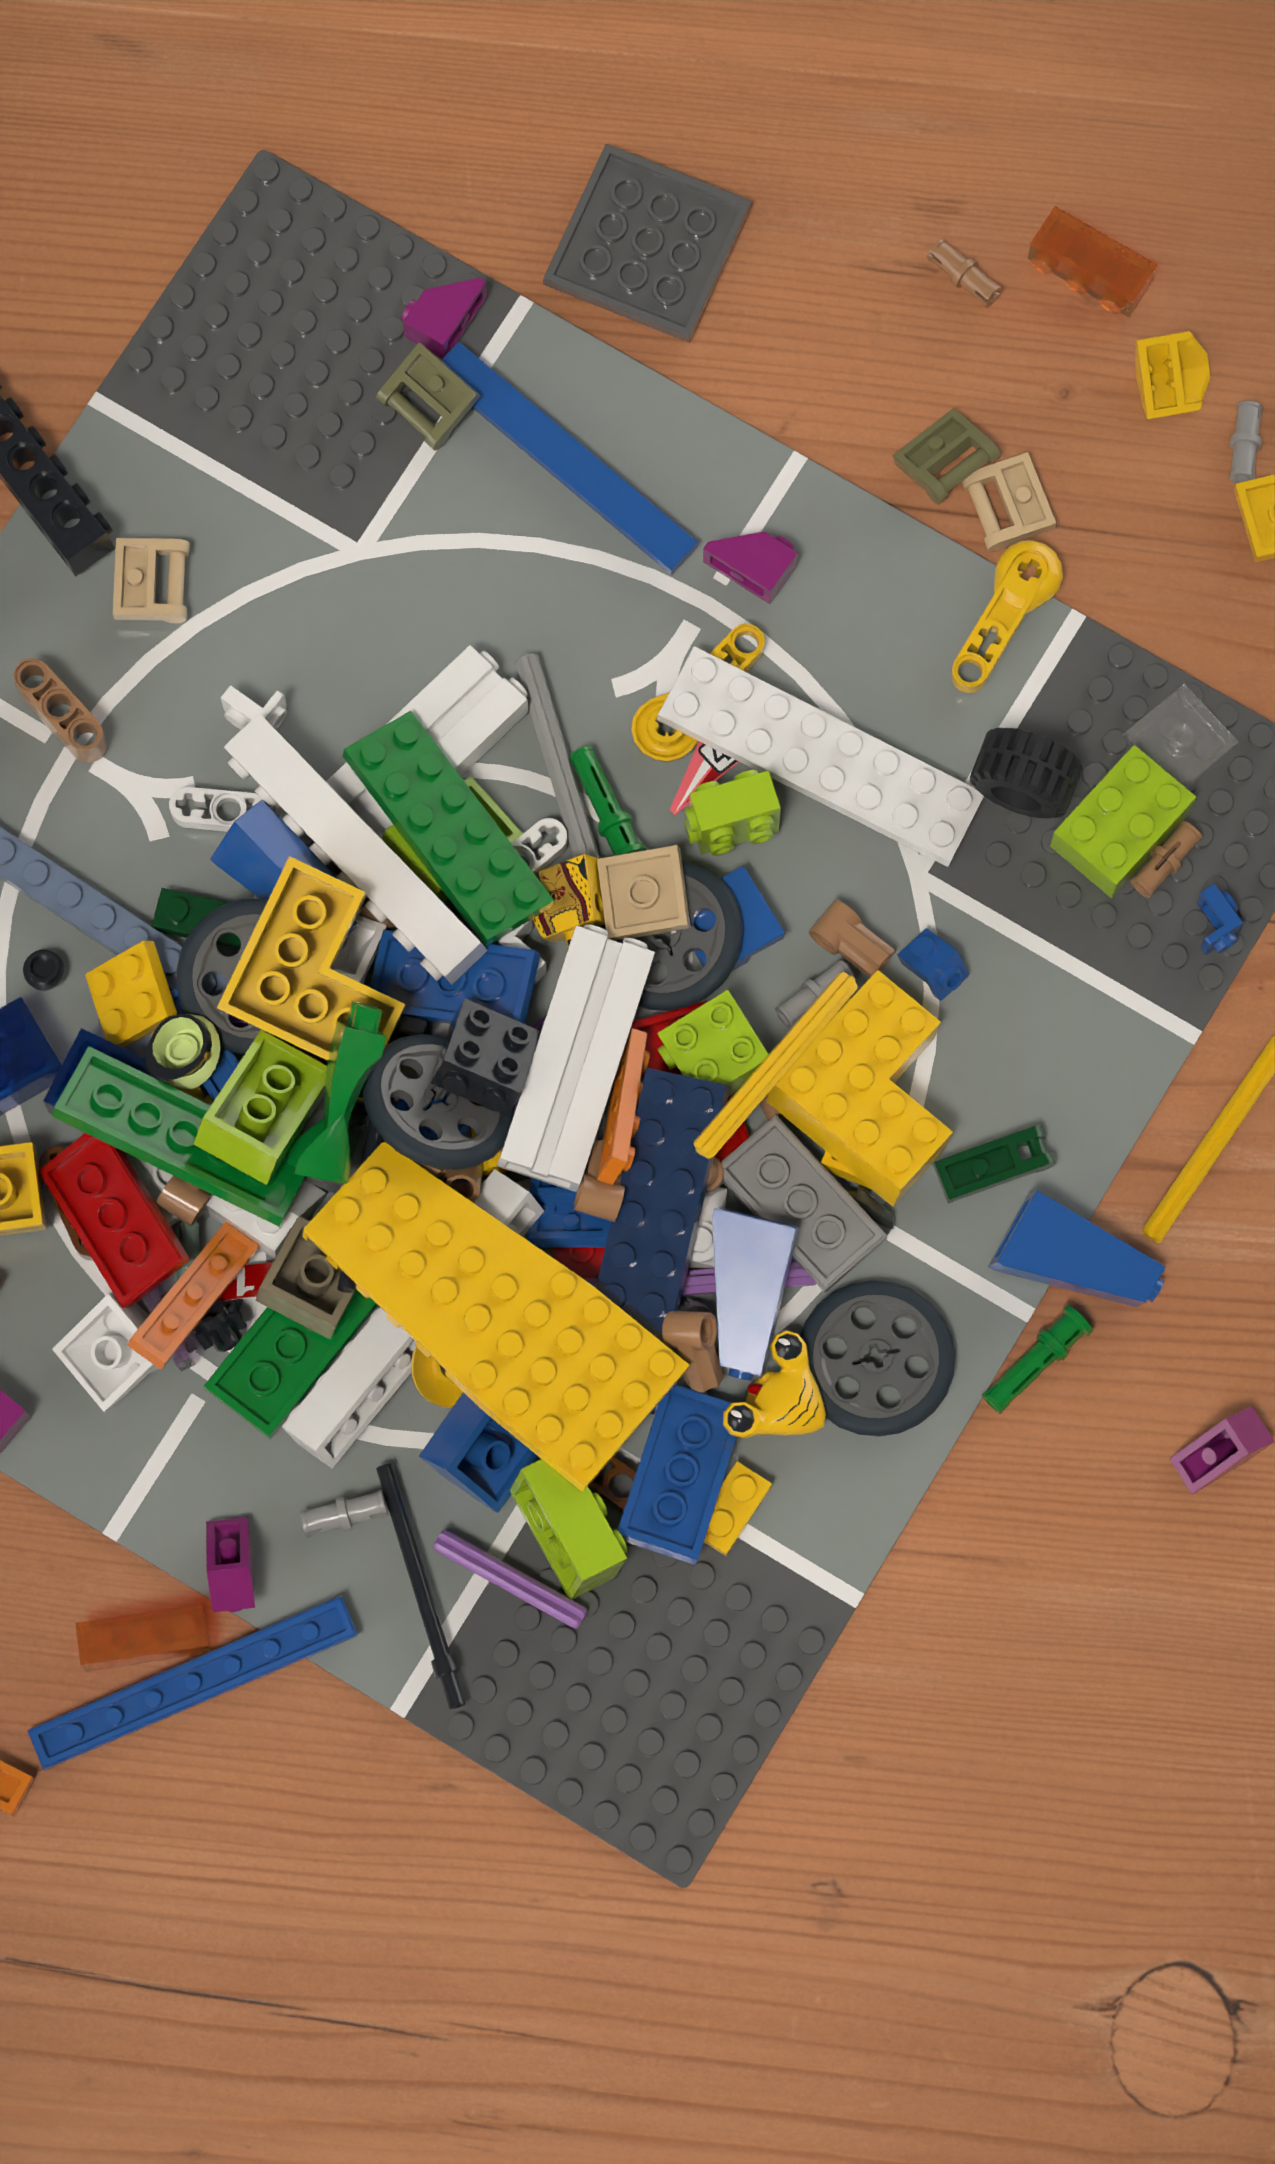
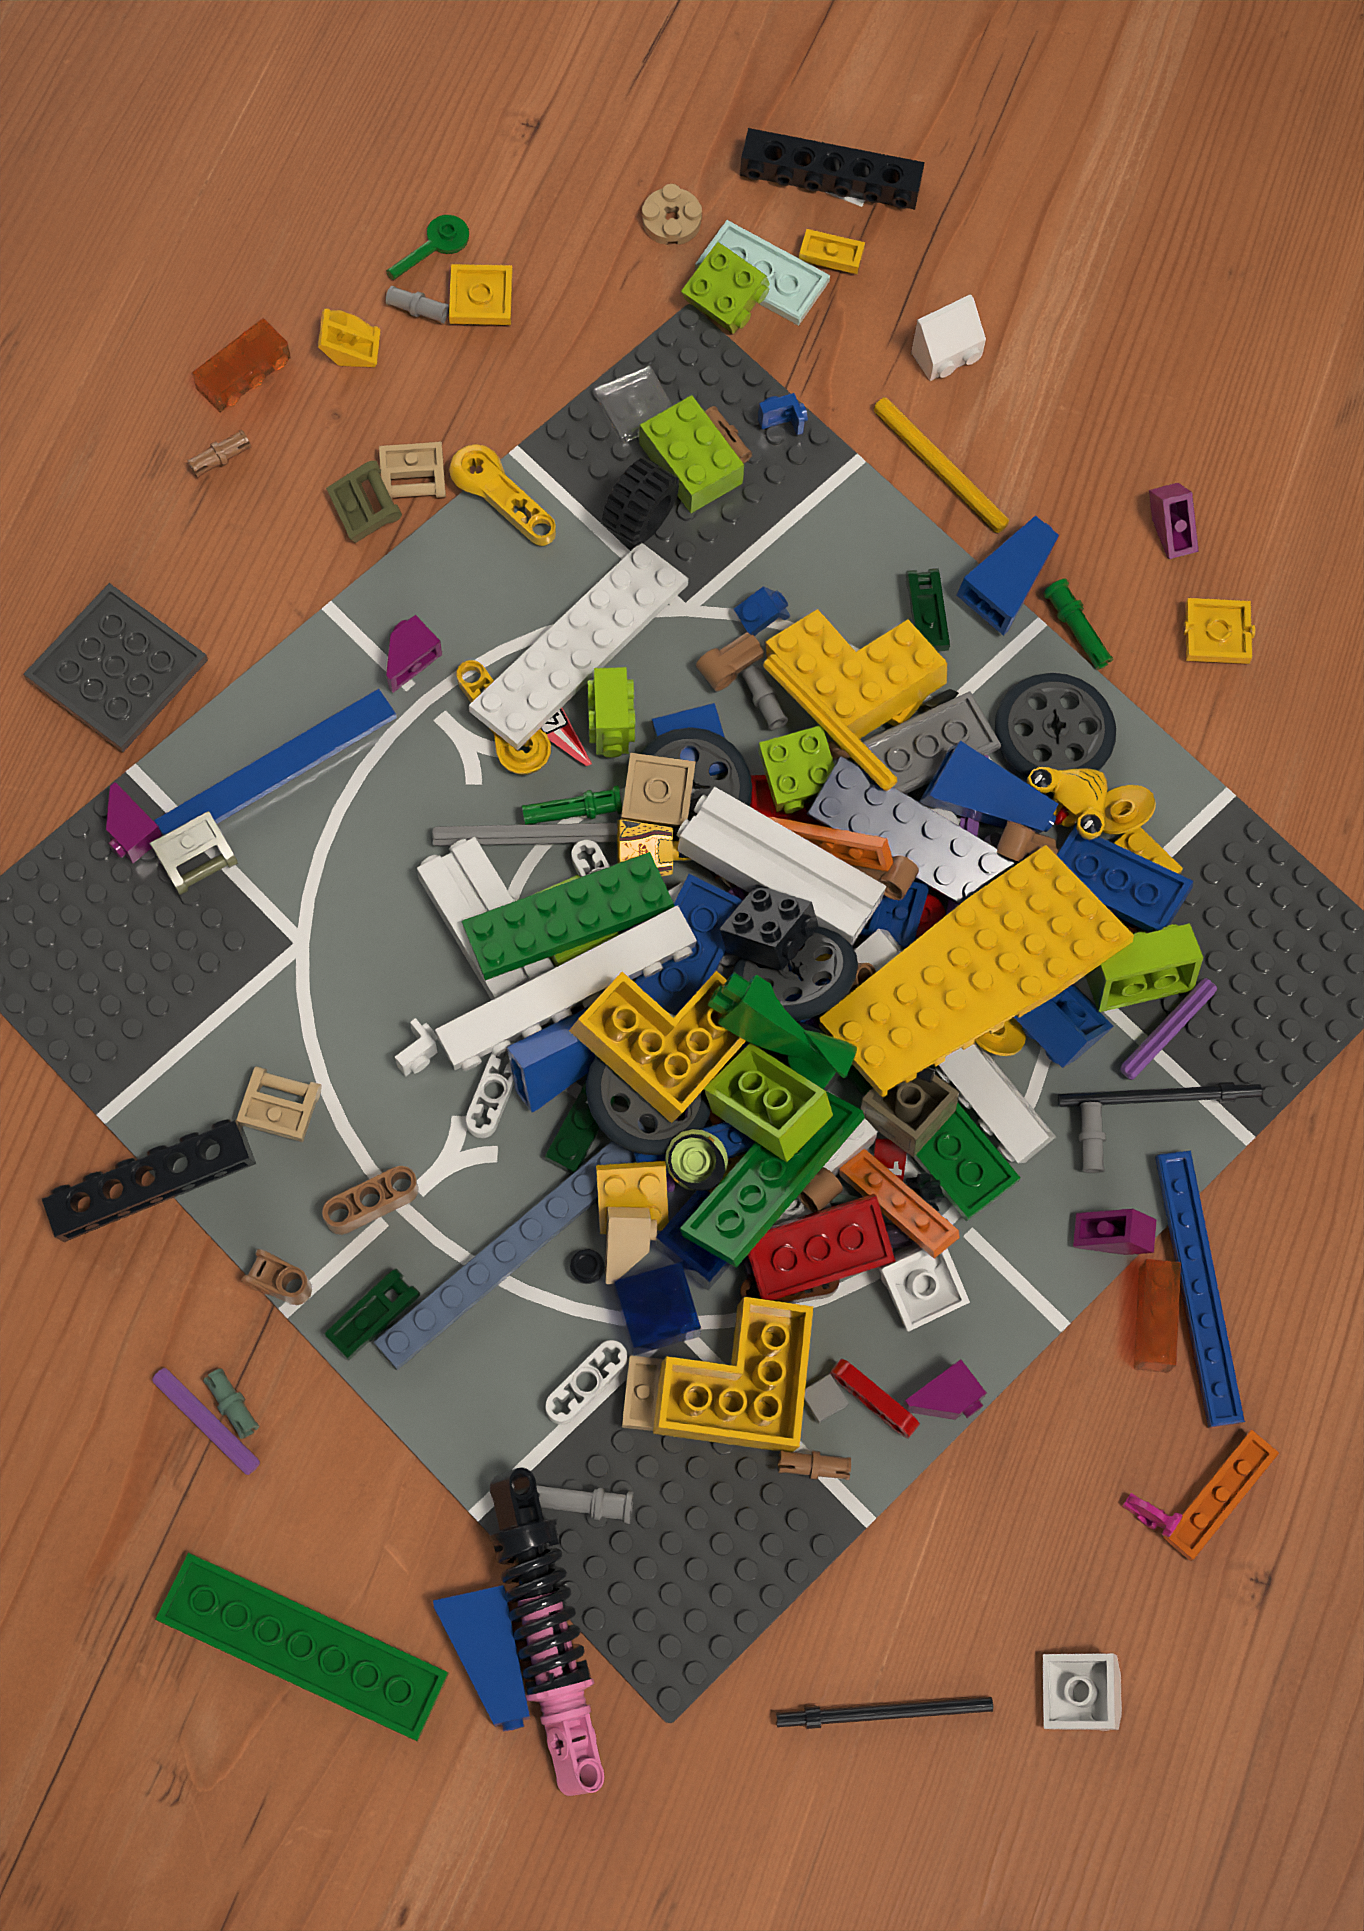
camera: 80 degrees left, 5 degrees down
(76, 998) = (627, 1239): none -> tan slope
(783, 1463) = (1127, 808): none -> yellow dish
(1079, 1539) = (1218, 630): none -> yellow plate

